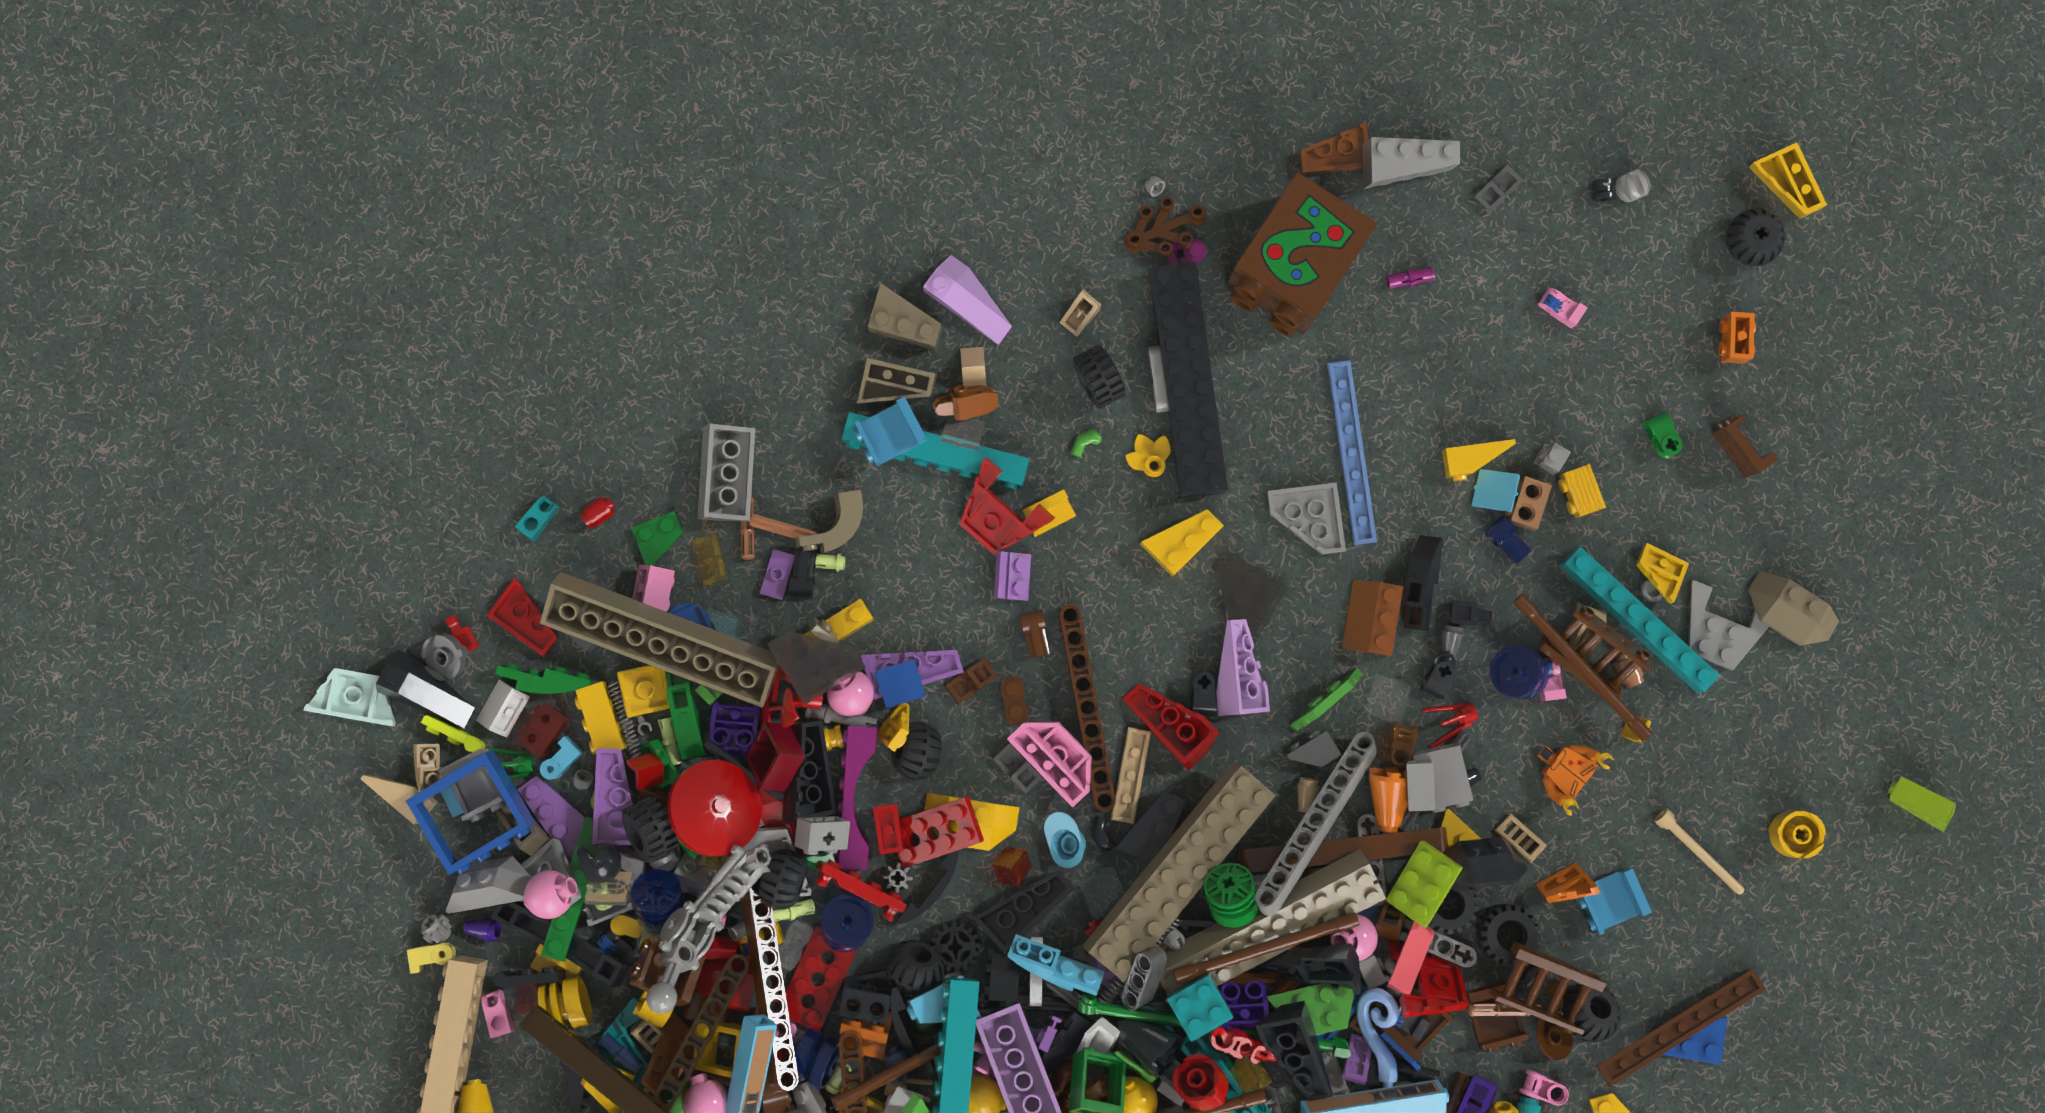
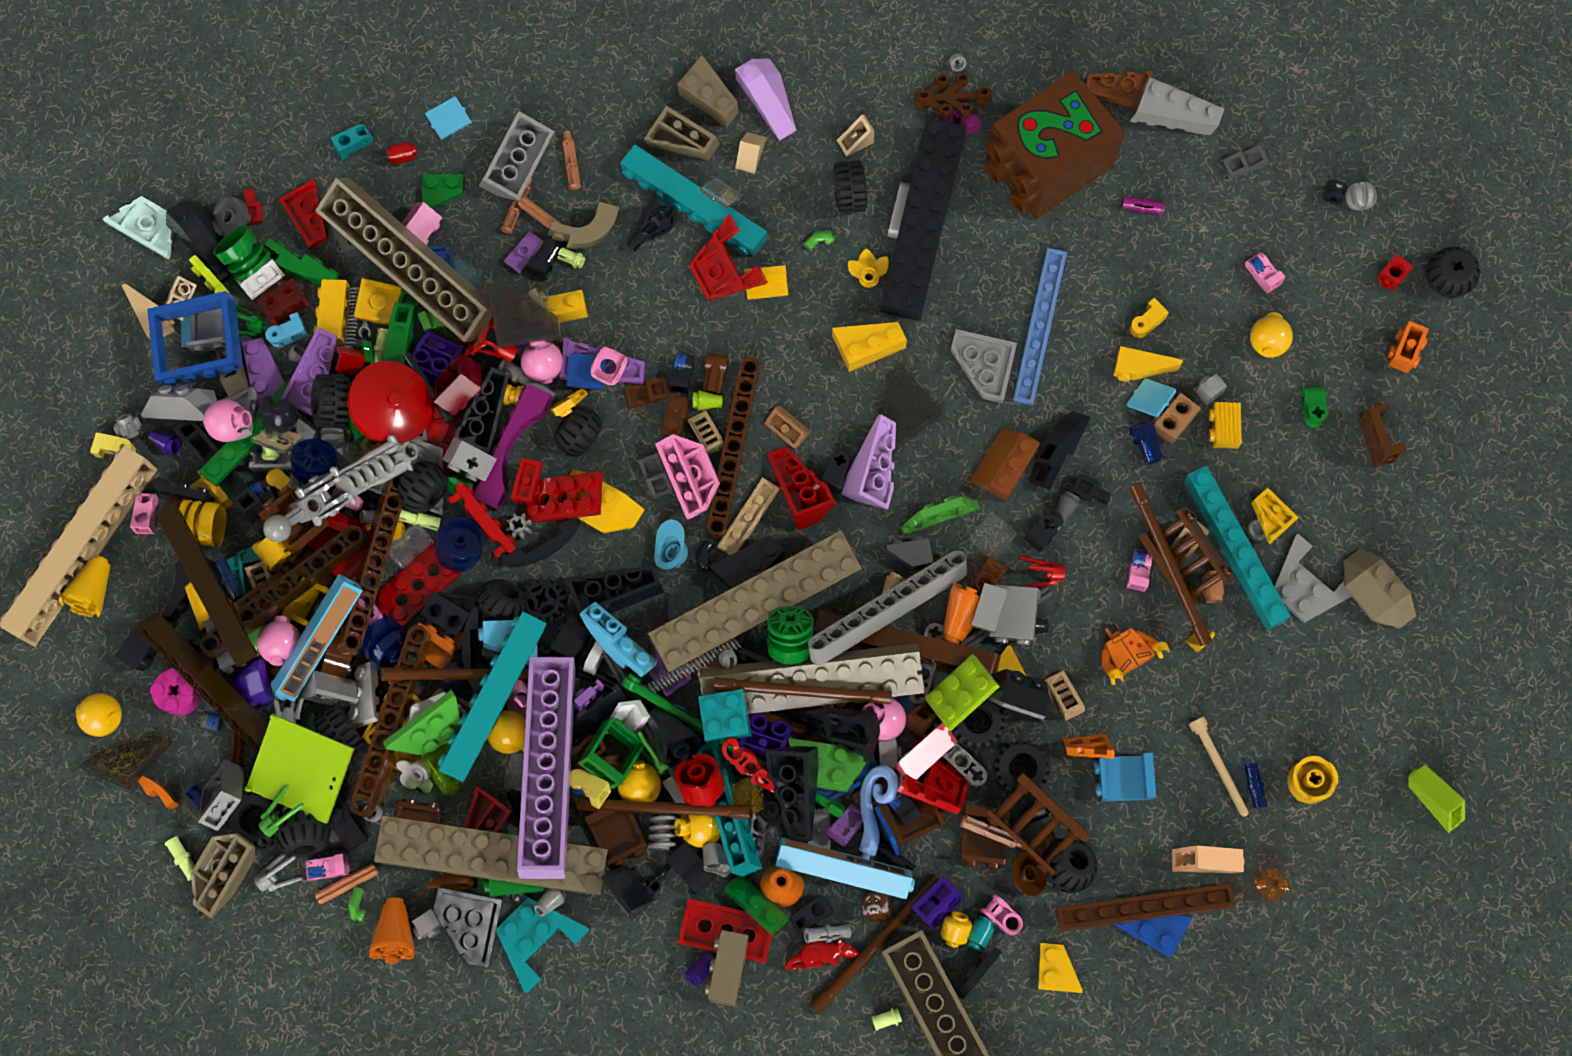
camera: 30 degrees right, 10 degrees down
(477, 695) = (241, 253): none -> green wheel
(629, 451) = (448, 117): none -> medium azure piece
(710, 560) = (475, 221): clear yellow hinge -> none
(784, 452) = (571, 161): none -> nougat piece
(890, 432) = (660, 170): dark azure panel -> none
(903, 492) = (653, 222): none -> black pin
(936, 676) = (620, 361): none -> bright pink piece
(966, 402) = (734, 171): dark orange hinge -> none
(1000, 645) = (682, 373): none -> black leg
(1012, 576) = (715, 321): medium lavender plate -> none
(1012, 866) = (617, 553): clear red panel -> none
(1036, 667) = (704, 400): none -> lime cone
(1067, 711) = (714, 446): none -> tan slope
(1132, 662) = (787, 427): none -> medium nougat slope
(1144, 978) = (687, 676): flat silver beam -> none
(1463, 405) = (1147, 322): none -> yellow leg
(1533, 674) = (1114, 550): clear blue wheel -> none
(1594, 376) = (1271, 335): none -> yellow brick
(1699, 250) = (1397, 265): none -> red brick
(1723, 955) = (1207, 860): none -> light nougat slope
(1742, 859) = (1255, 786): none -> clear blue pin
(1786, 954) = (1264, 887): none -> clear orange brick
(1790, 180) = (1499, 236): yellow wedge -> none

